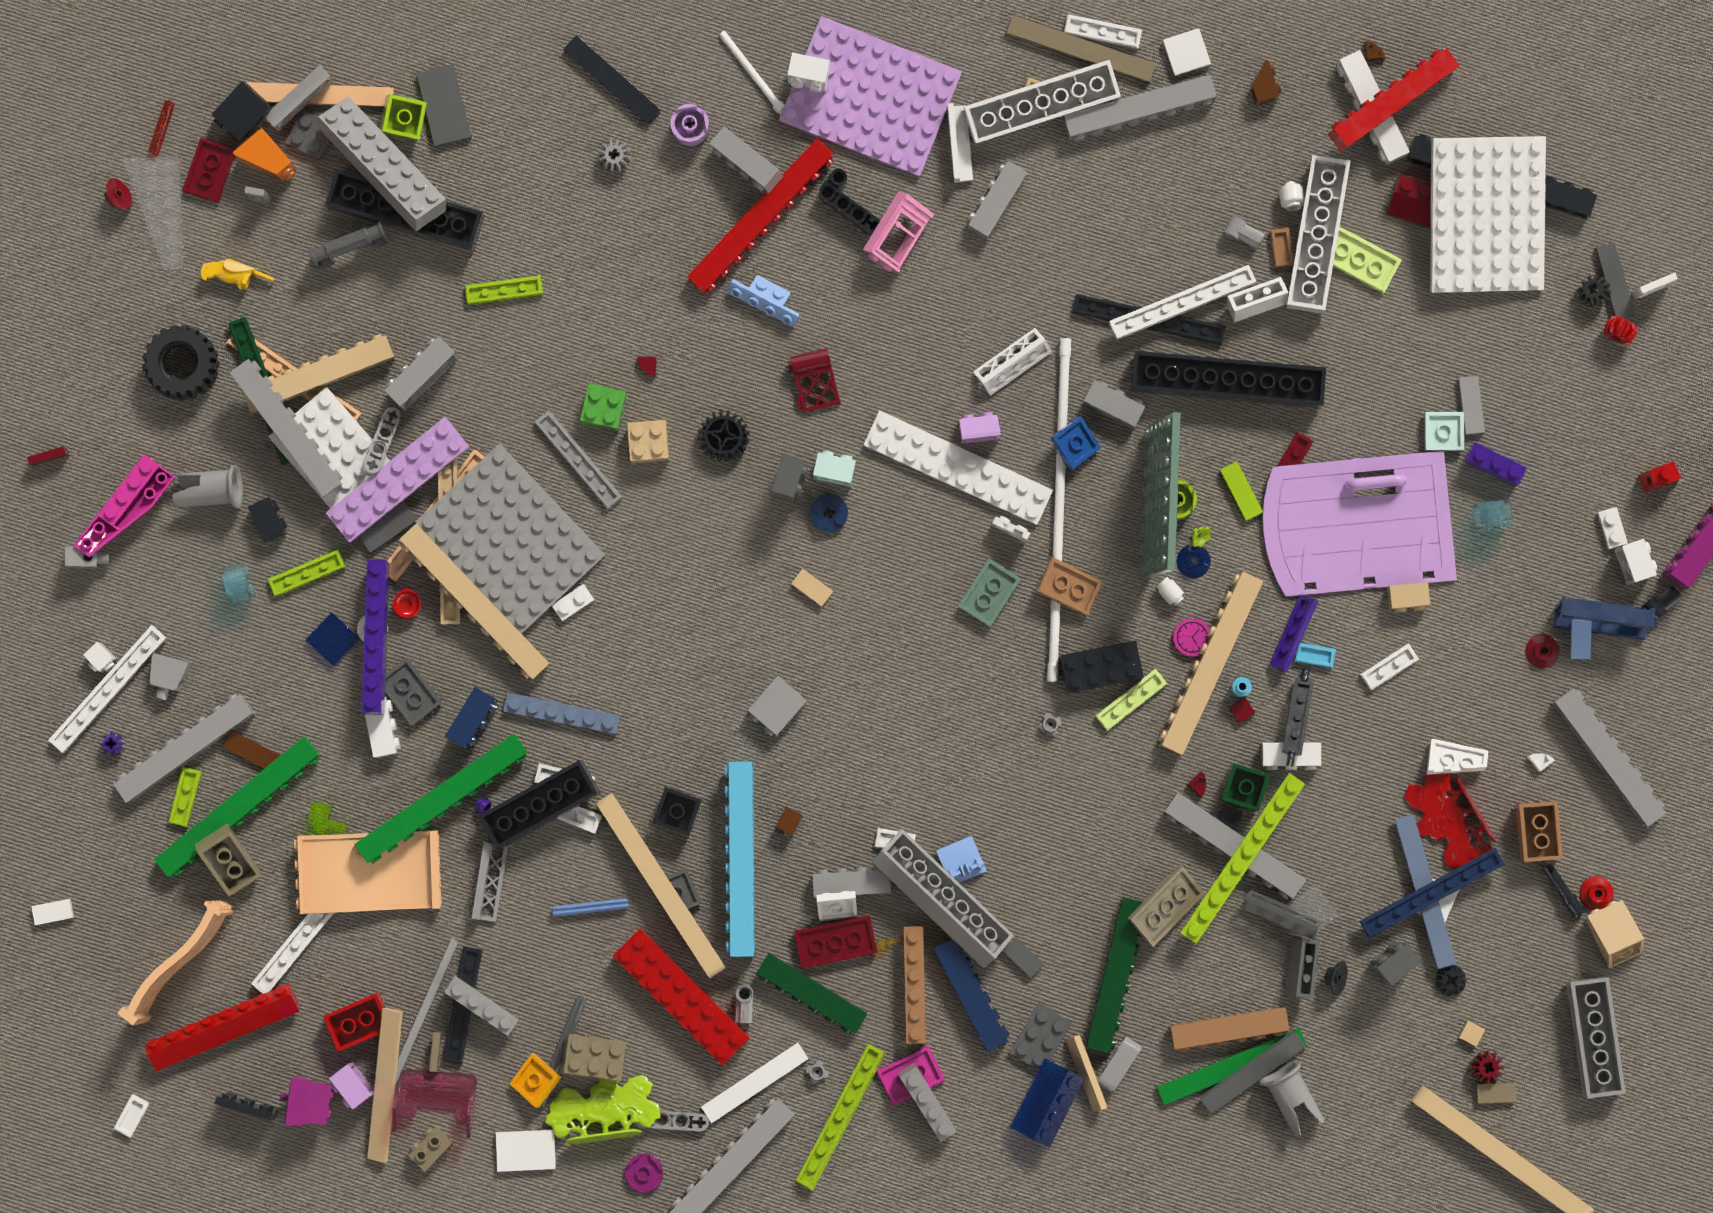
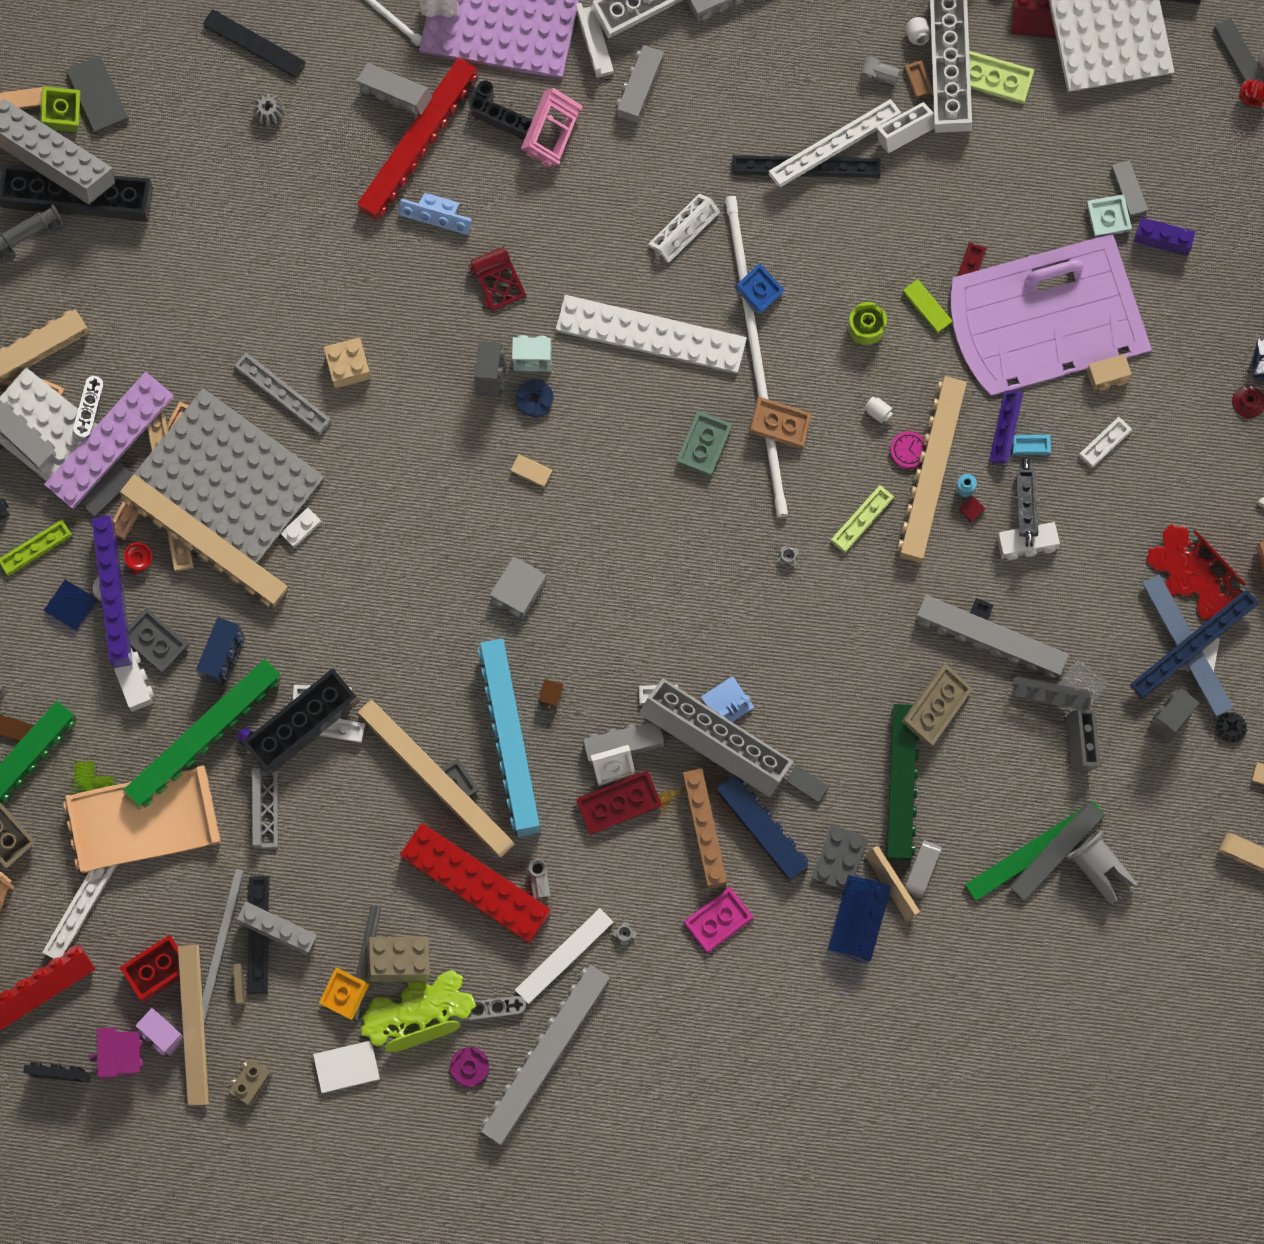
camera: 10 degrees left, 10 degrees down
(421, 373) = (116, 338): light grey brick -> none
(435, 1092) = (245, 1026): clear pink windscreen -> none
(504, 290) = (183, 251): lime tile -> none
(561, 713) = (308, 634): sand blue plate -> none
(590, 907) = (369, 815): medium blue axle -> none
(603, 407) = (298, 339): bright green brick -> none
(648, 364) = (334, 293): dark red tile -> none
(677, 811) = (438, 704): black brick -> none
(700, 125) = (344, 70): lavender brick -> none
(720, 452) = (426, 345): black gear -> none
(812, 993) = (604, 856): dark green brick -> none
(840, 1117) = (656, 974): lime tile -> none
(927, 1102) = (740, 939): light grey brick -> none
(979, 428) = (664, 293): lavender slope -> none
(1016, 531) = (713, 379): white wing -> none
(1101, 667) = (827, 492): black brick -> none
(1114, 404) = (789, 248): light grey brick -> none
(1160, 496) = (851, 313): sand green plate -> none
(1193, 570) = (892, 386): clear blue piece -> none
(1198, 784) = (944, 586): dark red tile -> none
(1201, 536) = (897, 354): lime plant -> none
(1228, 379) = (893, 204): black brick -> none
(1230, 1027) = (1023, 813): medium nougat brick -> none
(1242, 858) = (1002, 645): lime plate -> none
(1245, 787) = (990, 578): dark green brick -> none
(1336, 977) = (1119, 743): black piece -> none
(1454, 758) = (1182, 515): white wing -> none
(1492, 513) = (1172, 280): clear light blue brick -> none
(1599, 284) = (1219, 57): pearl dark grey gear -> none

